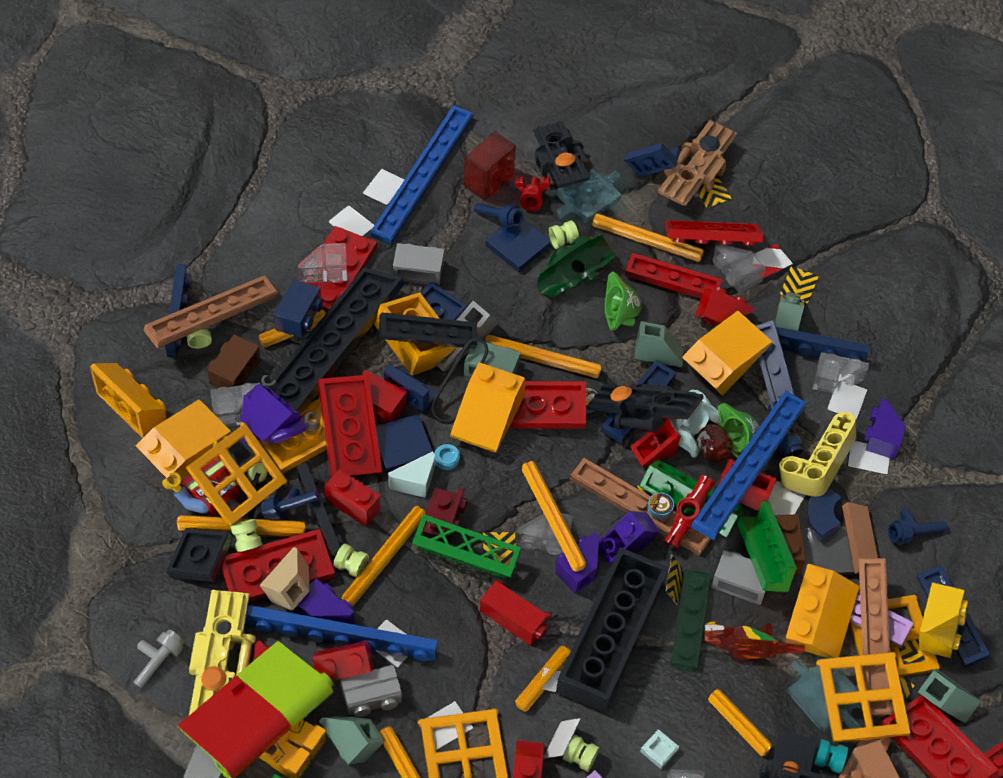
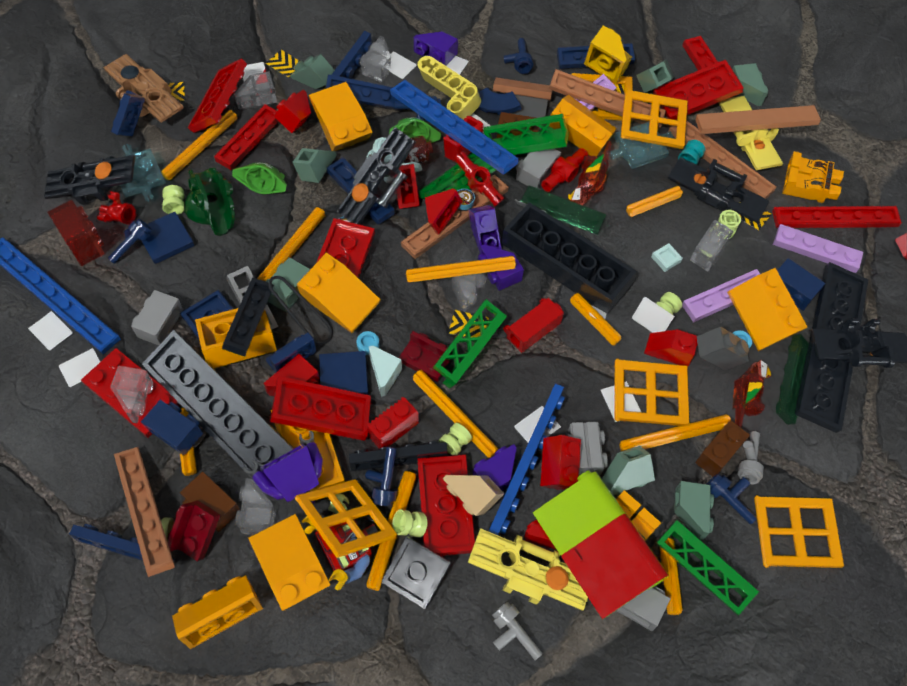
camera: 75 degrees left, 5 degrees up
(200, 355) = (193, 529): none -> dark red bracket
(629, 481) = (441, 208): none -> red slope
(748, 608) = (564, 170): none -> red pin

